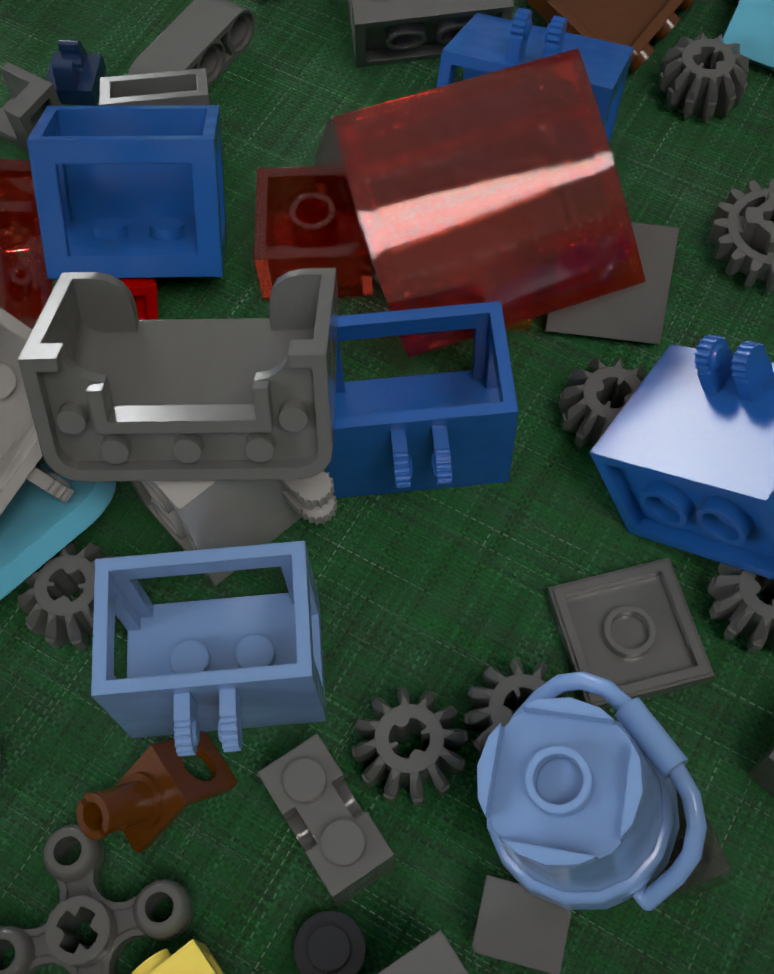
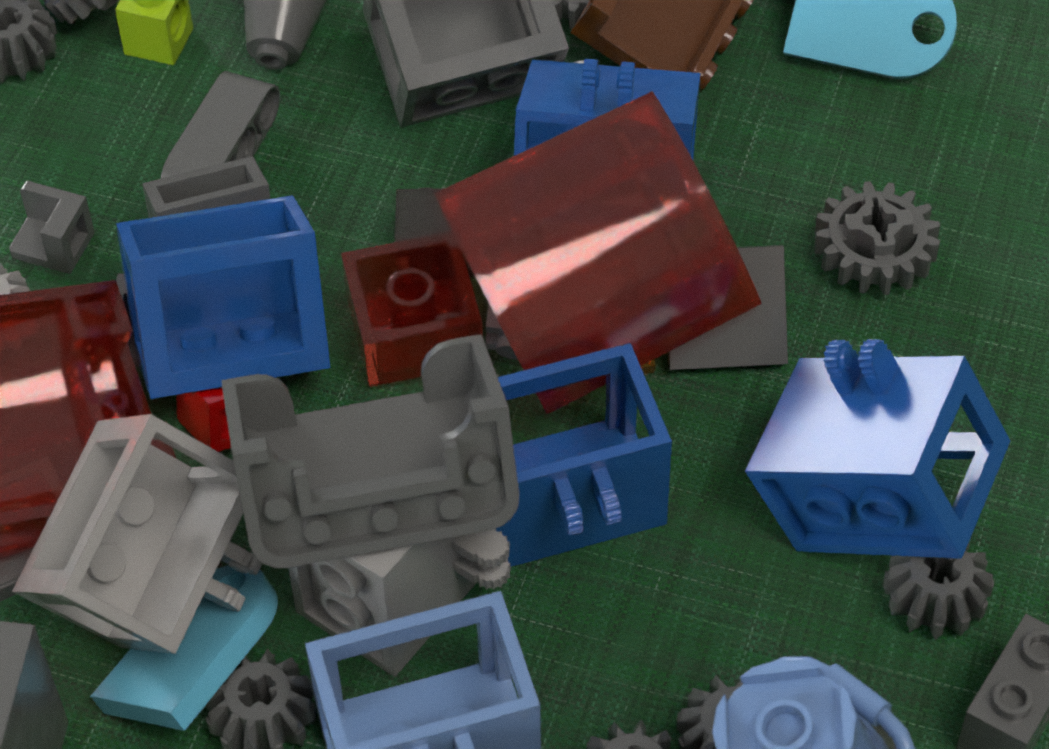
camera: 15 degrees left, 10 degrees down
(76, 74) = (95, 178): dark blue tile -> none
(596, 398) = (736, 426): dark grey gear -> none
(631, 631) = (820, 620): dark grey tile -> none
(703, 77) = (774, 87): dark grey gear -> none

